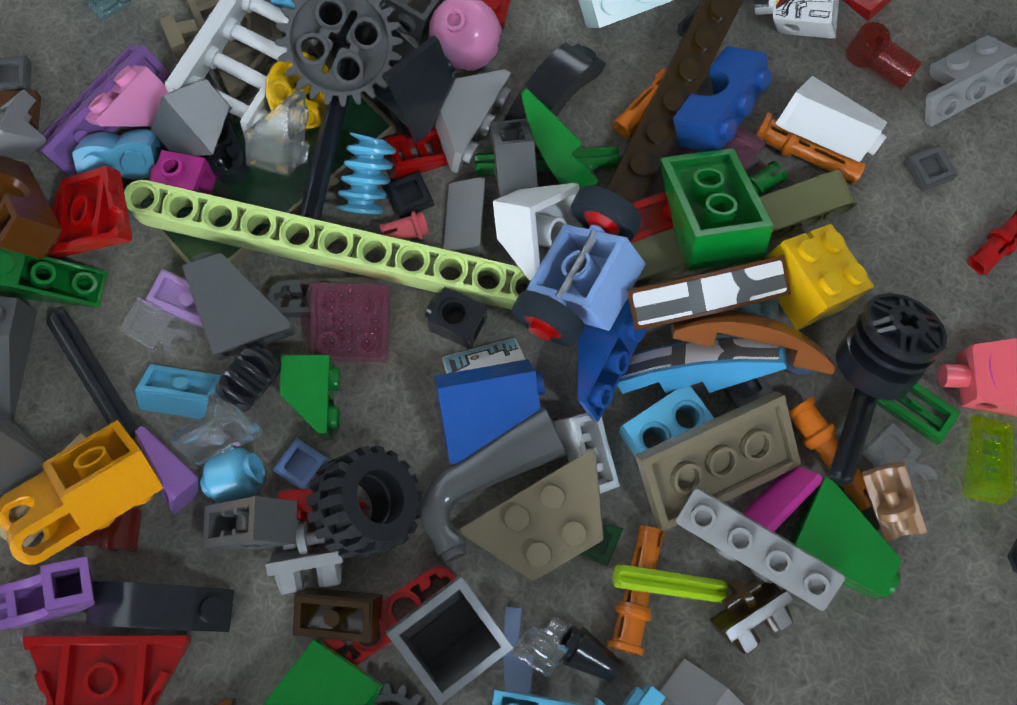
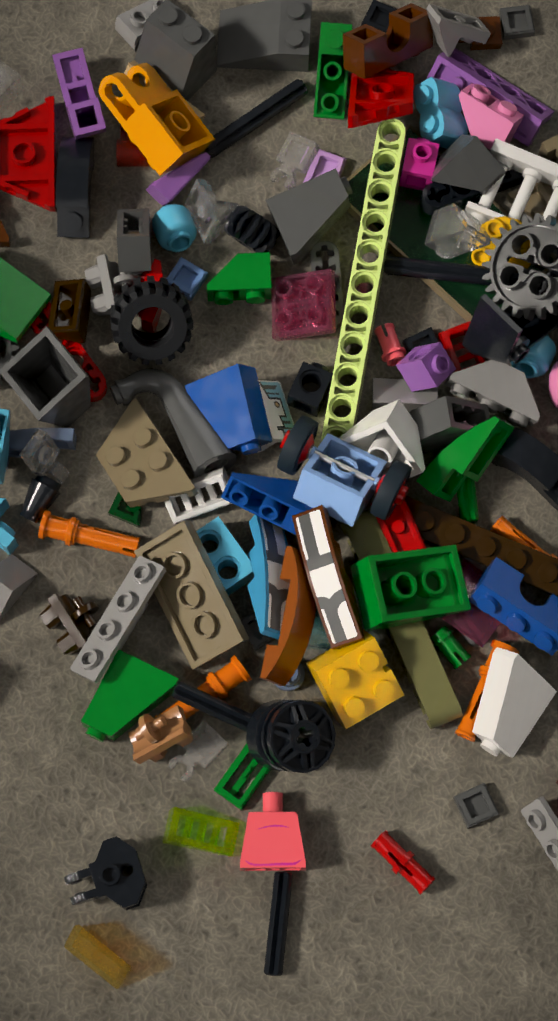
camera: 90 degrees right, 0 degrees up
(175, 391) = (245, 180): medium azure slope -> none
(366, 175) = (431, 307): medium azure piece -> none
(442, 182) = (426, 366): none -> medium lavender brick
(669, 583) = (92, 554): lime axle -> none
(783, 497) = (160, 649): dark pink slope -> none

